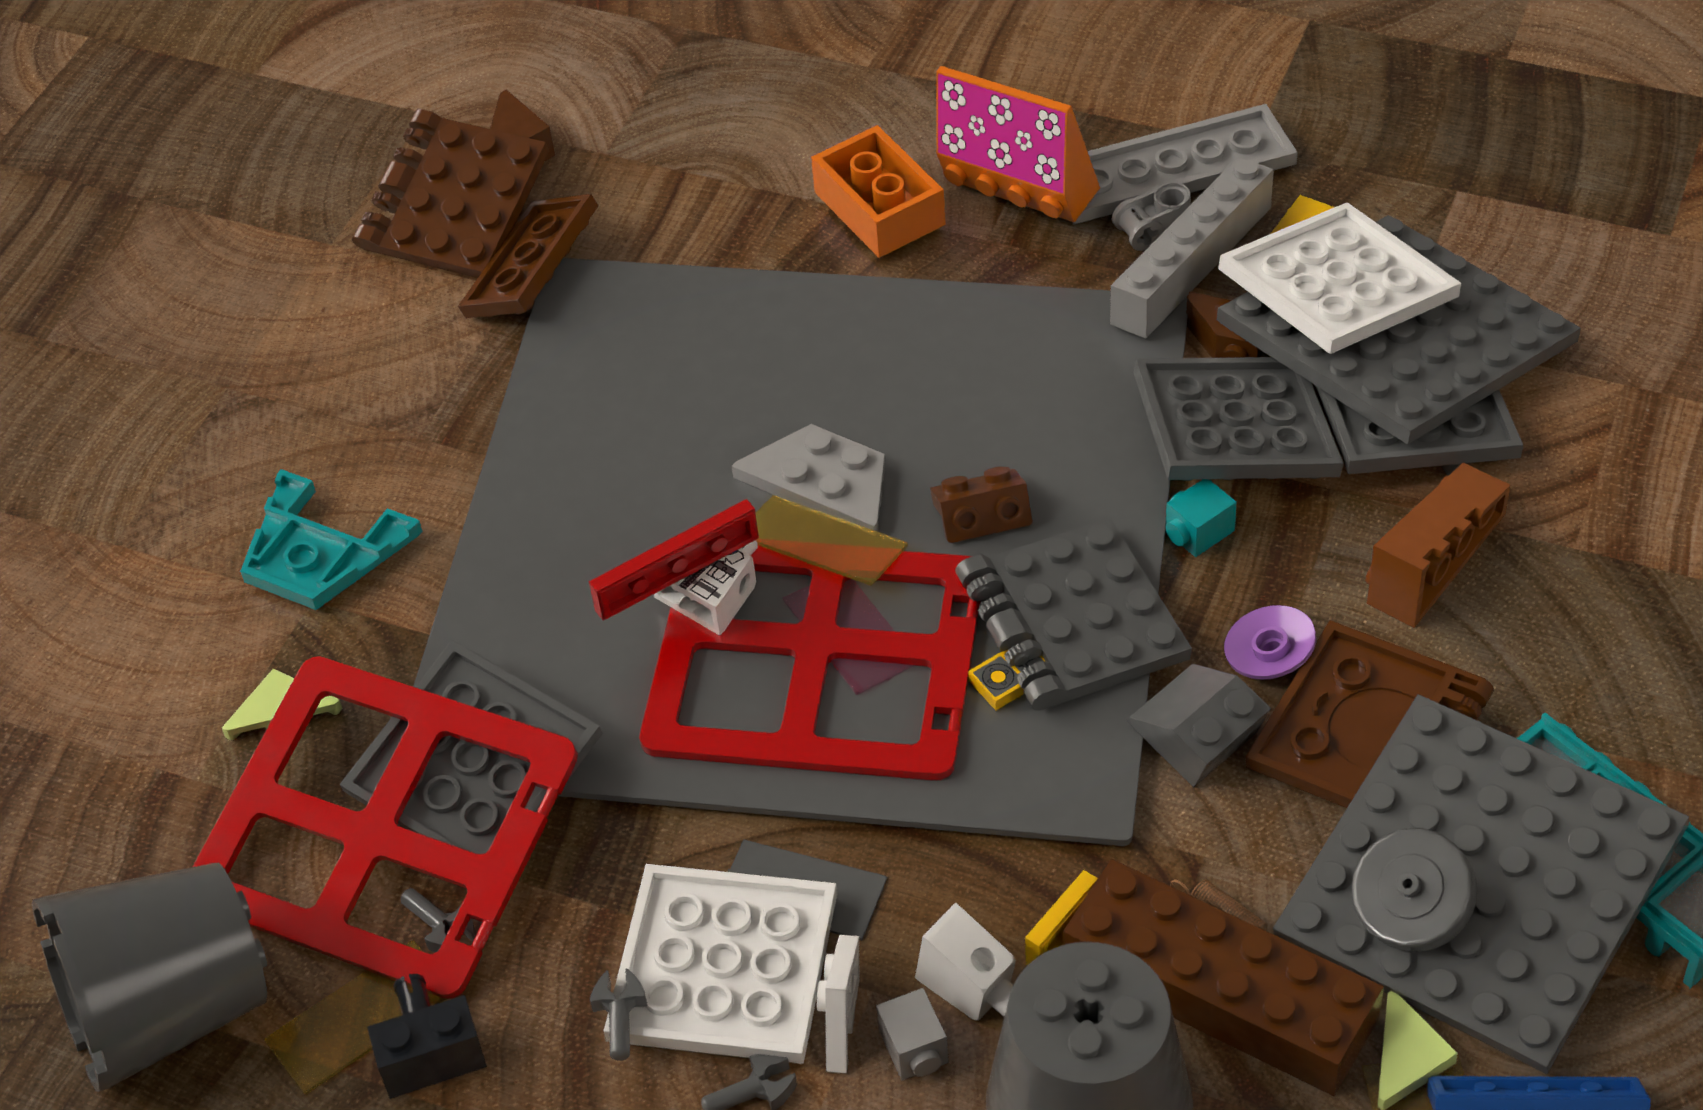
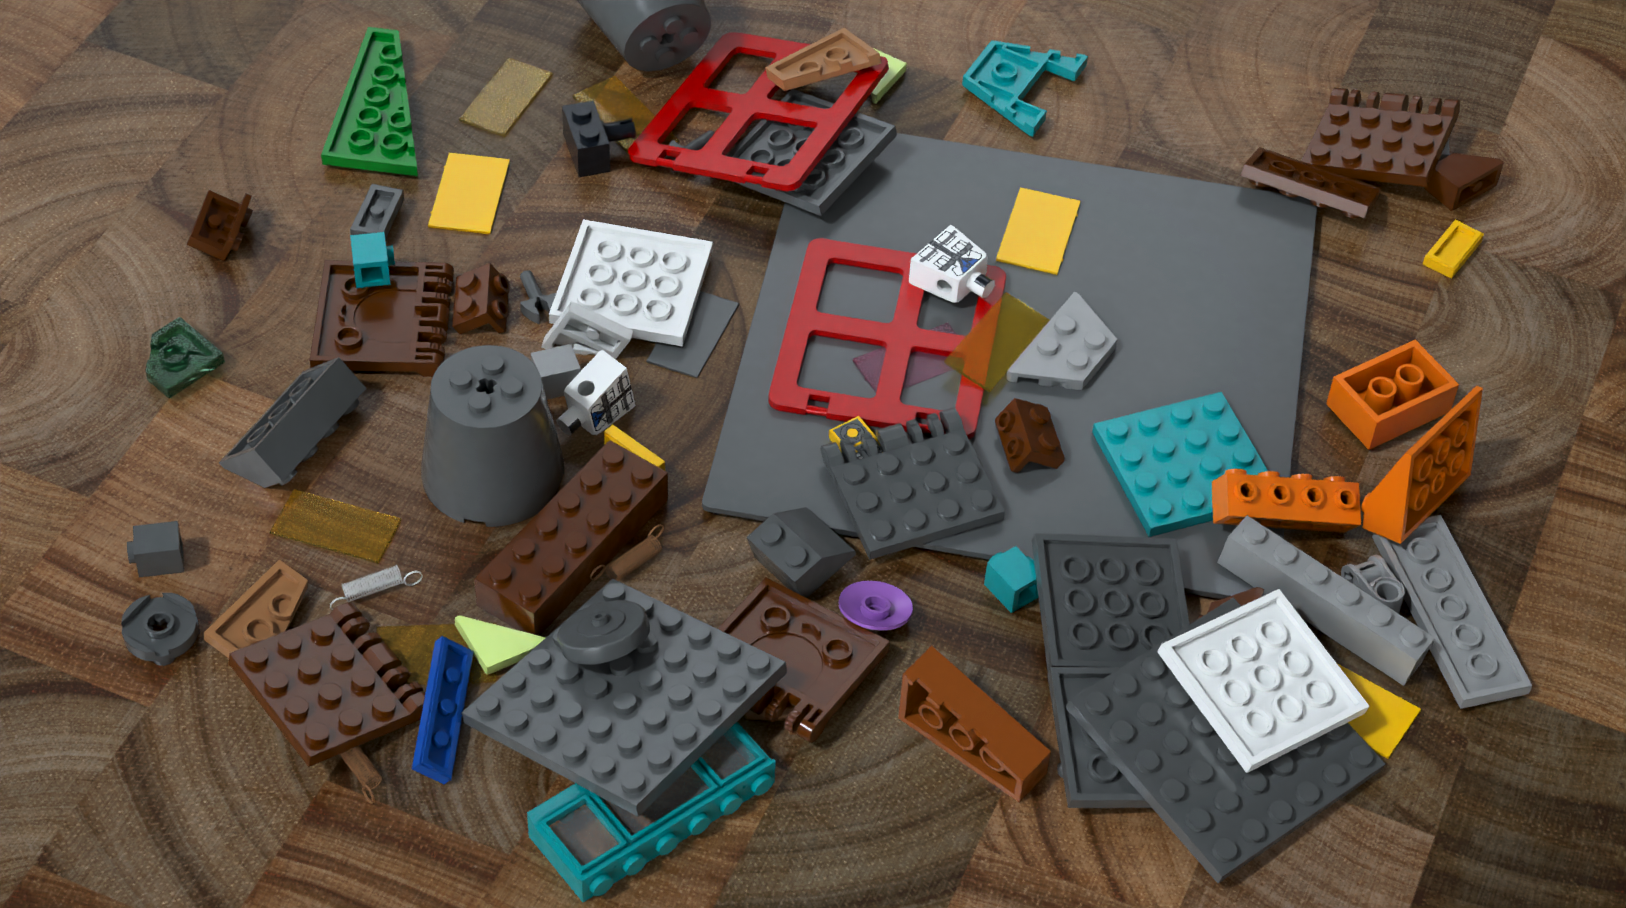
camera: 85 degrees right, 0 degrees up
(312, 728) = (822, 60): none -> medium nougat wing
(609, 512) = (1038, 231): none -> yellow window
(618, 1010) = (605, 222): dark grey bar -> none
(623, 151) = (1453, 249): none -> yellow tile
(674, 559) = (945, 228): red tile -> none
(999, 366) = (1173, 455): none -> teal plate
(1066, 269) = (1286, 501): none -> orange brick

